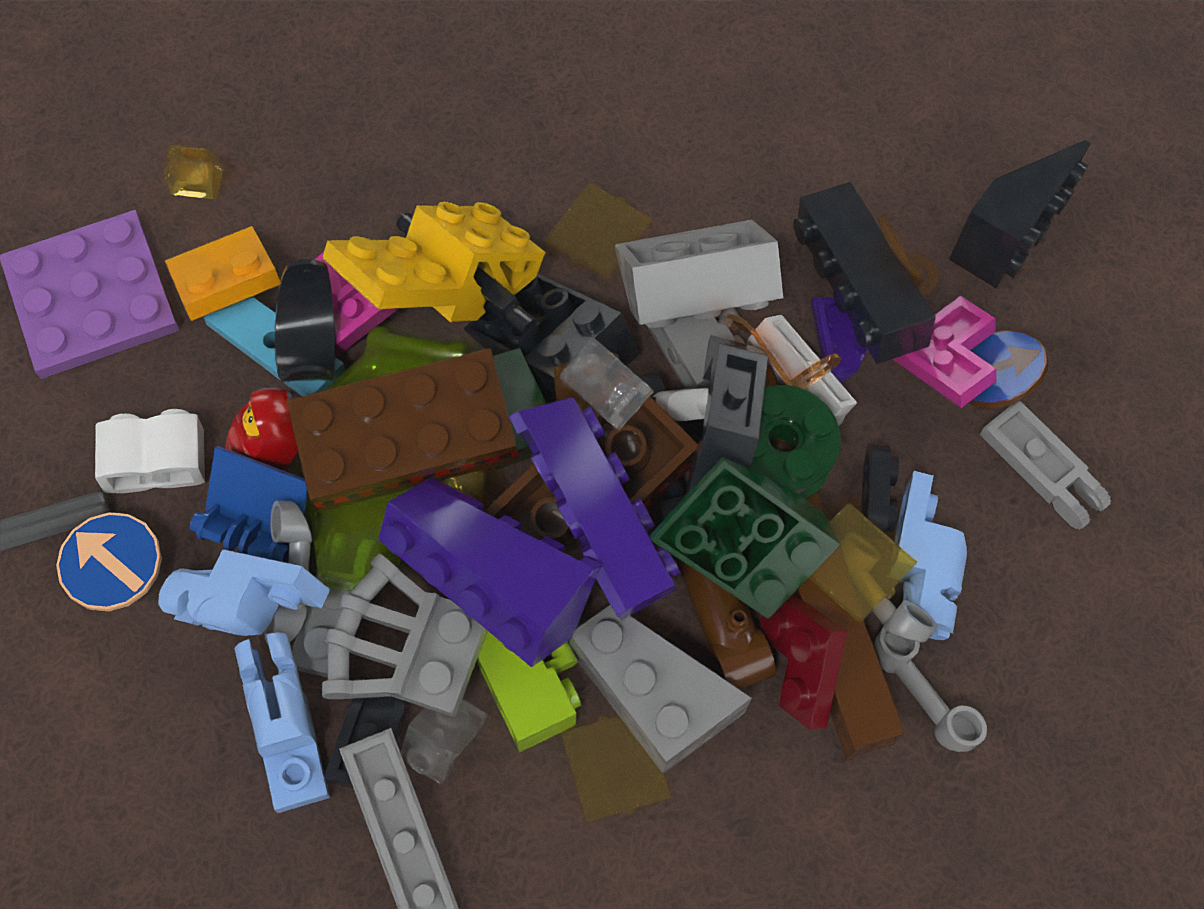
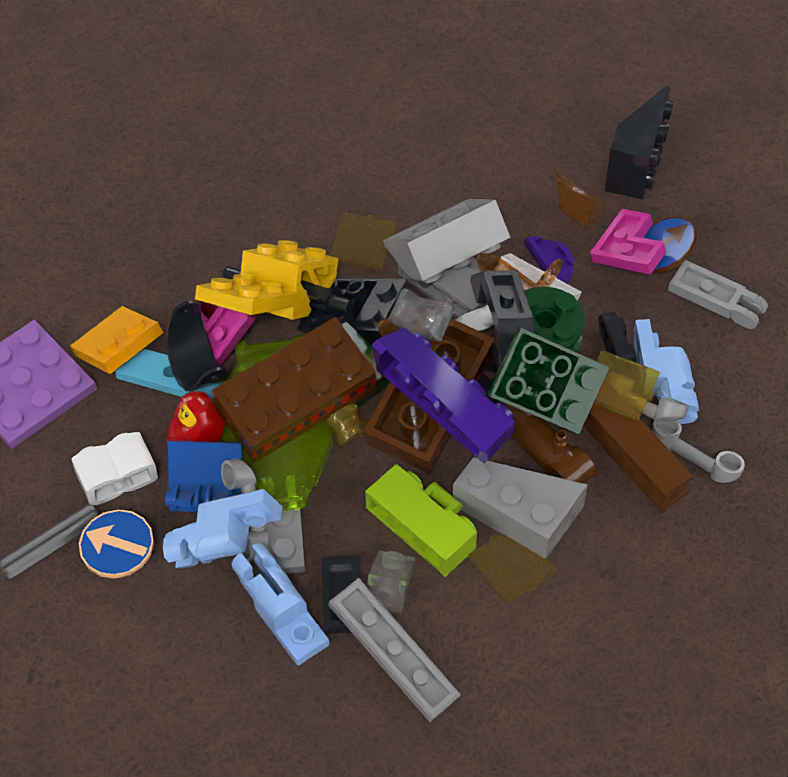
camera: 15 degrees left, 10 degrees down
(192, 172) = (64, 284): clear yellow slope -> none
(436, 654) = (369, 531): light grey plate -> none
(489, 568) = (388, 453): dark purple wedge -> none
(814, 658) = (616, 446): dark red plate -> none
(864, 273) = (554, 211): black brick -> none

